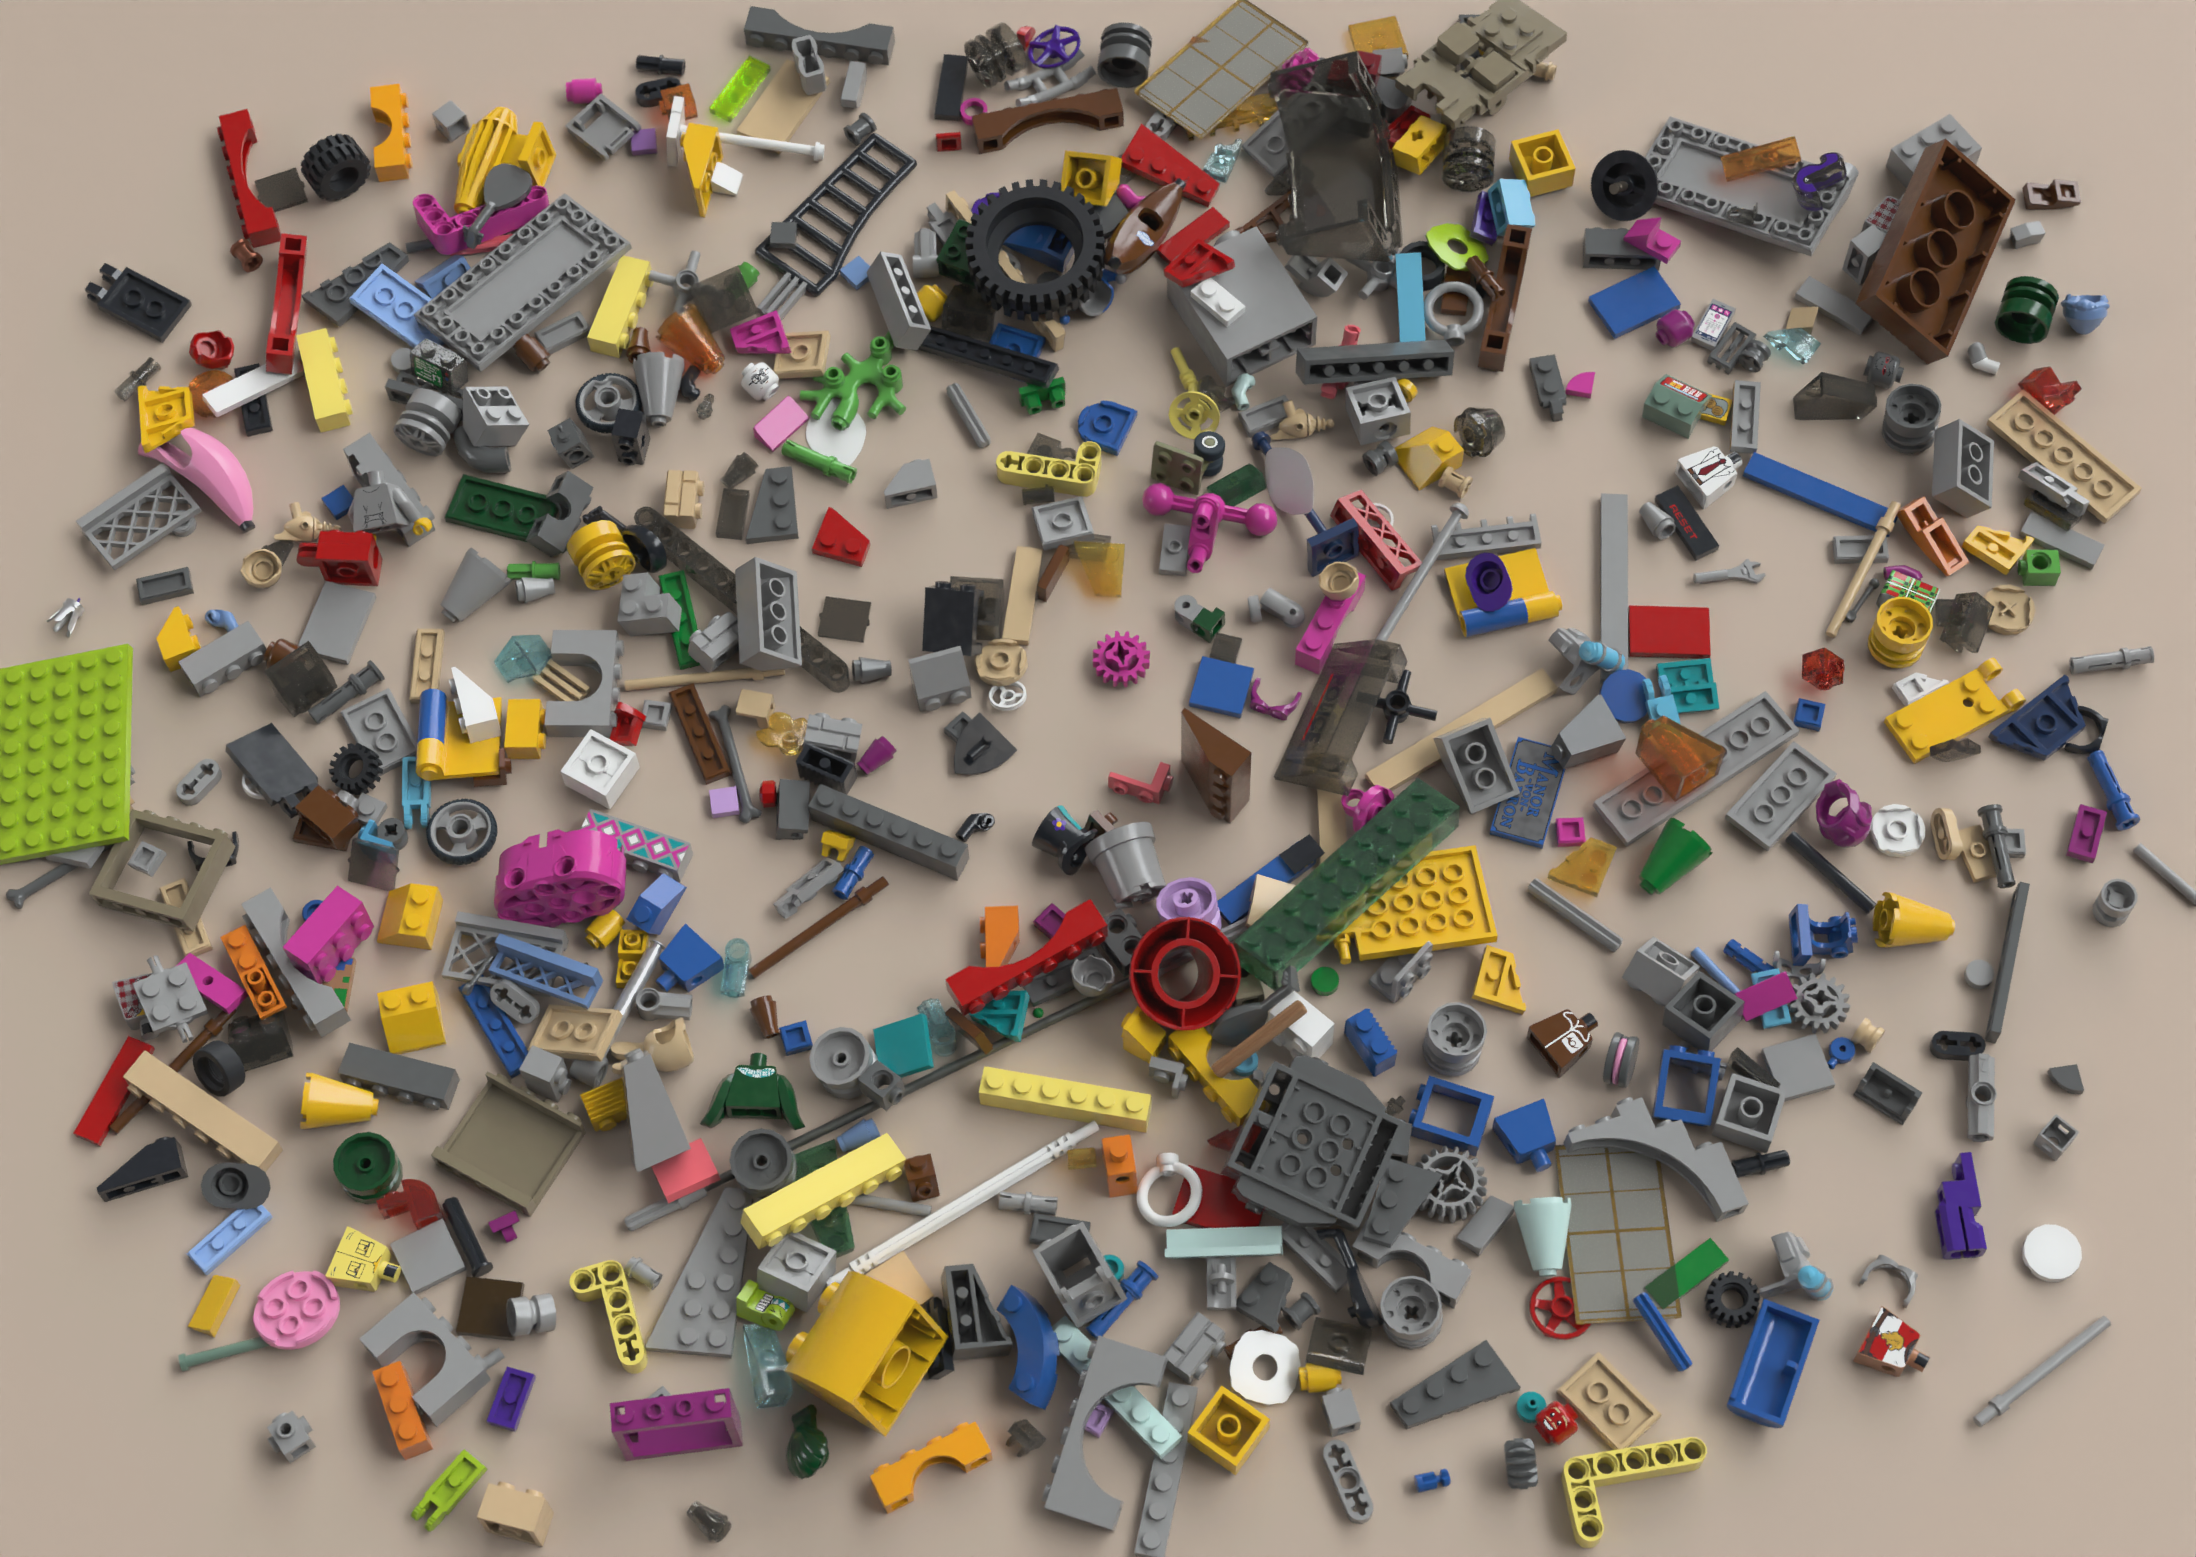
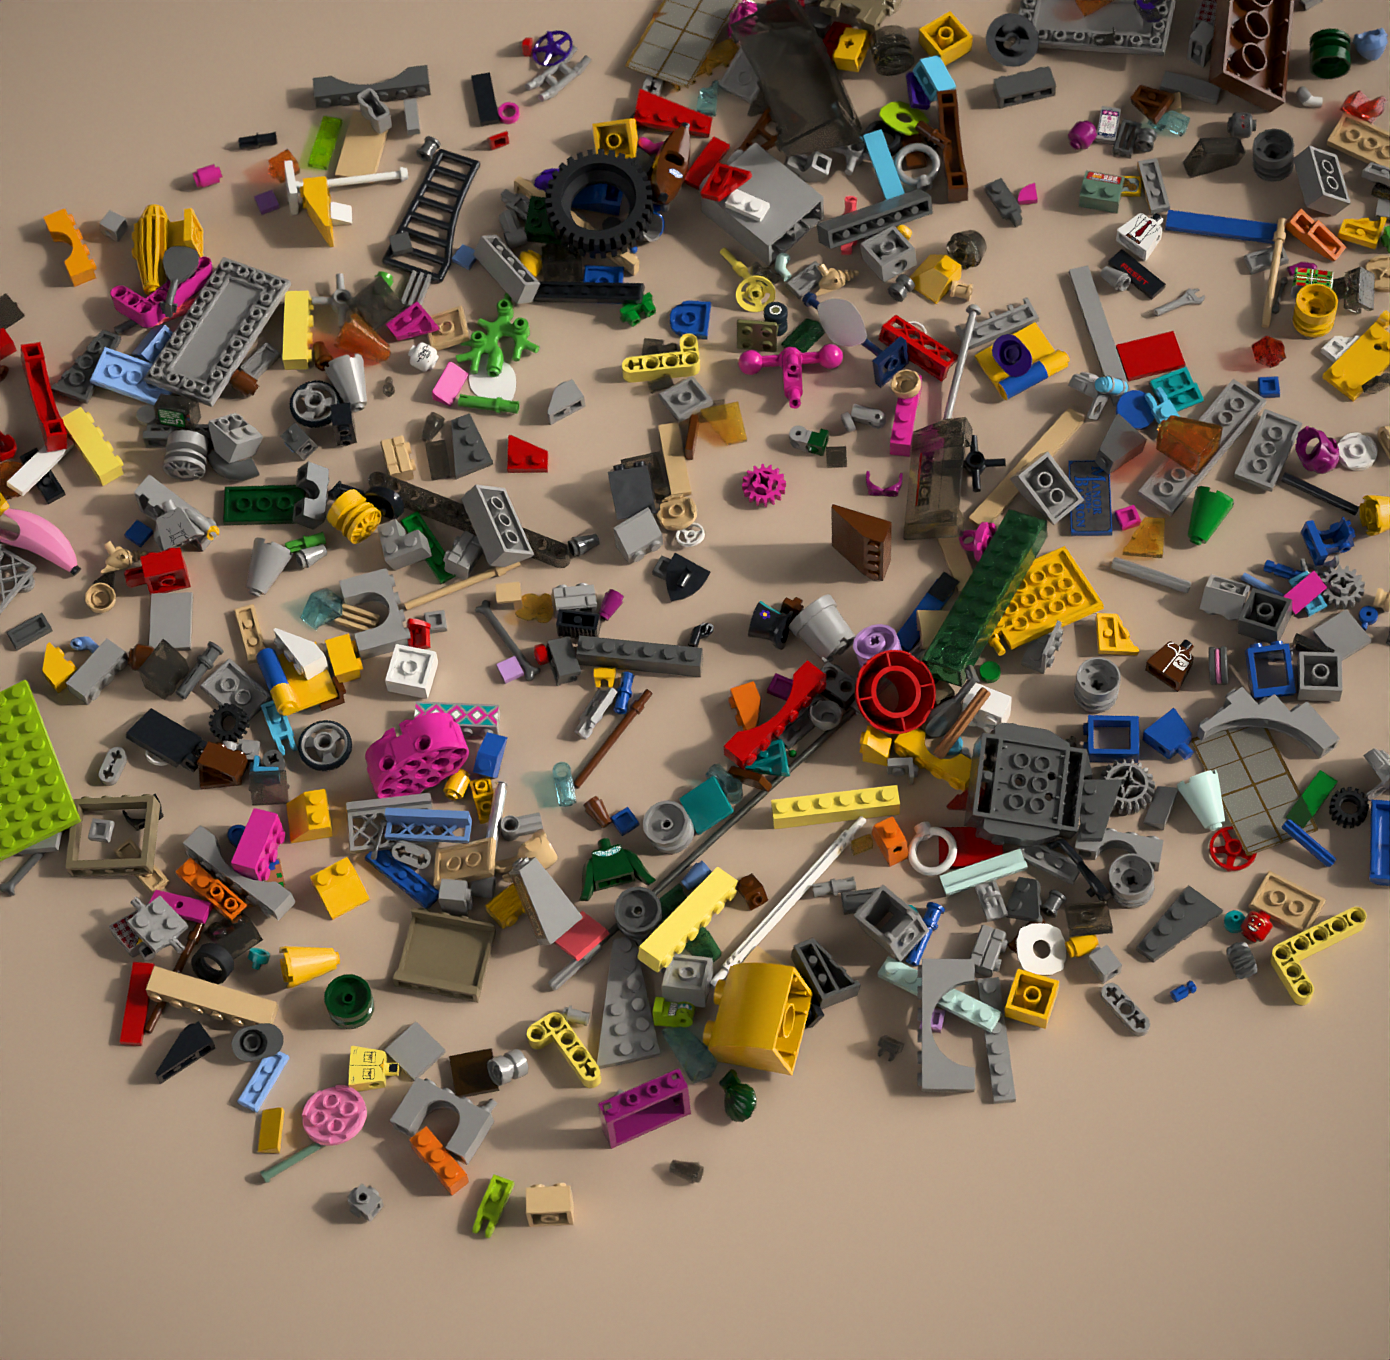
camera: 15 degrees left, 0 degrees up
(281, 1076) = (258, 957): none -> teal tile
(335, 167) = (41, 284): black tyre -> none
(399, 1076) = (346, 931): dark grey brick -> none
(417, 1199) = (391, 1012): clear red brick -> none
(467, 1237) = (438, 1029): black axle -> none
(505, 1224) = (463, 1011): magenta tile -> none
(511, 1399) = (513, 1130): dark purple plate -> none
(606, 132) = (237, 201): light grey container -> none
(654, 89) = (261, 160): black beam -> none
(688, 385) = (370, 375): black arm -> none
(688, 961) = (527, 789): blue torso -> none
(699, 733) = (473, 626): reddish brown tile -> none
(844, 619) = (549, 513): clear smoke piece -> none
(881, 1075) = (699, 827): dark grey brick -> none
(893, 1205) = (741, 916): light grey bar -> none
(962, 1448) = (848, 1068): light orange arch -> none
(968, 415) = (585, 338): light grey axle -> none
(995, 55) = (512, 66): clear smoke wheel -> none
(1036, 1346) = (878, 982): blue brick -> none
(1096, 110) = (600, 87): reddish brown arch -> none
(1124, 55) = (609, 40): dark grey wheel -> none
(1144, 792) = (814, 575): coral bracket -> none
(1174, 550) = (774, 396): light grey plate -> none
(1221, 687) = (843, 485): blue tile -> none
(1370, 1042) = (1038, 704): blue brick -> none
(1634, 302) = (1045, 124): blue tile -> none
(1649, 238) = (1044, 74): dark pink slope -> none
(1761, 1163) = (1338, 709): black axle -> none
(1777, 311) = (1151, 102): none -> reddish brown wing

